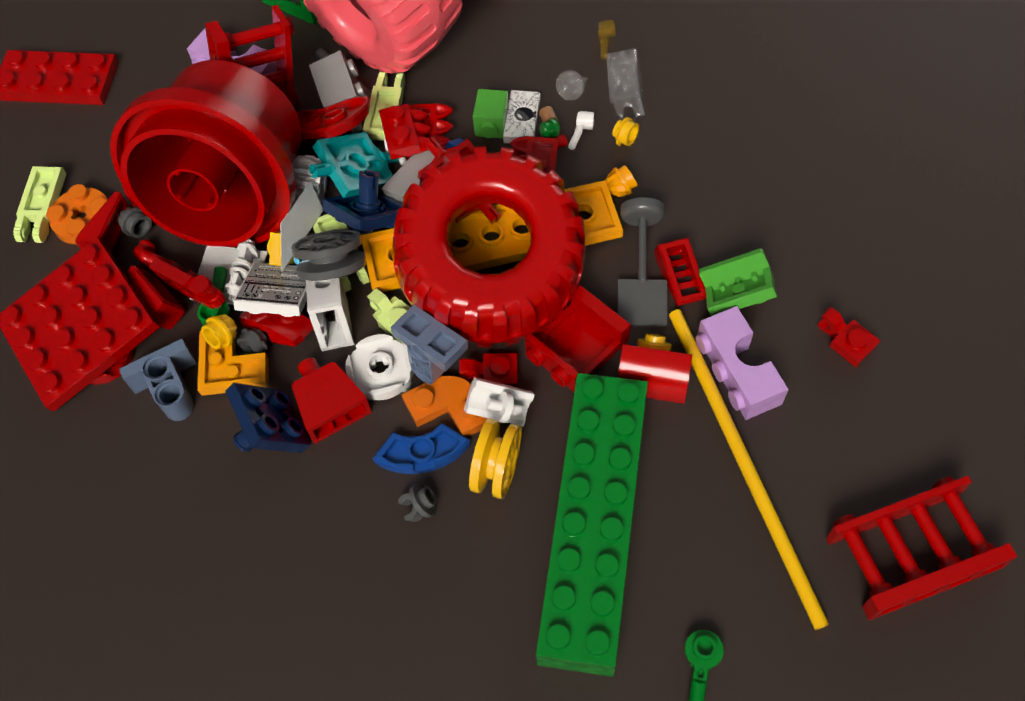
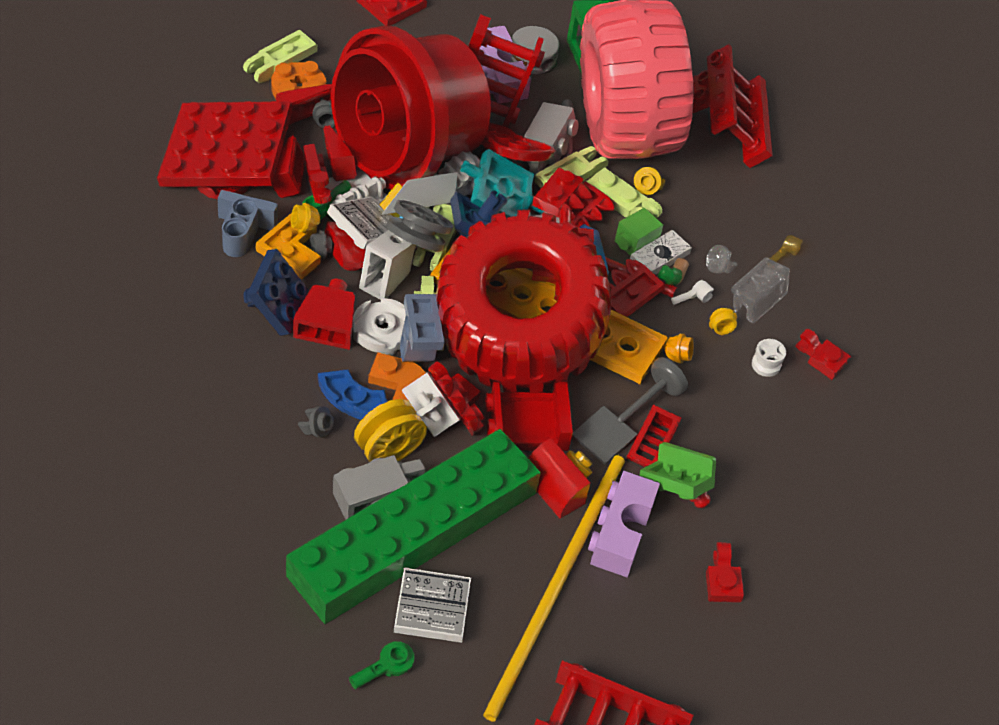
camera: 30 degrees right, 10 degrees down
(145, 253) = (314, 137): red arm -> none
(188, 250) = (339, 155): none -> red slope
(246, 17) = (528, 37): none -> light grey head
(450, 65) = (648, 181): none -> yellow plate
(453, 93) = (624, 197): none -> yellowish green hinge
(527, 516) = (368, 483): none -> light grey hinge
(535, 381) = (470, 415): none -> red plate
(681, 575) = (432, 605): none -> light grey tile
(691, 125) = (766, 350): none -> white wheel
(722, 97) = (823, 357): none -> red plate

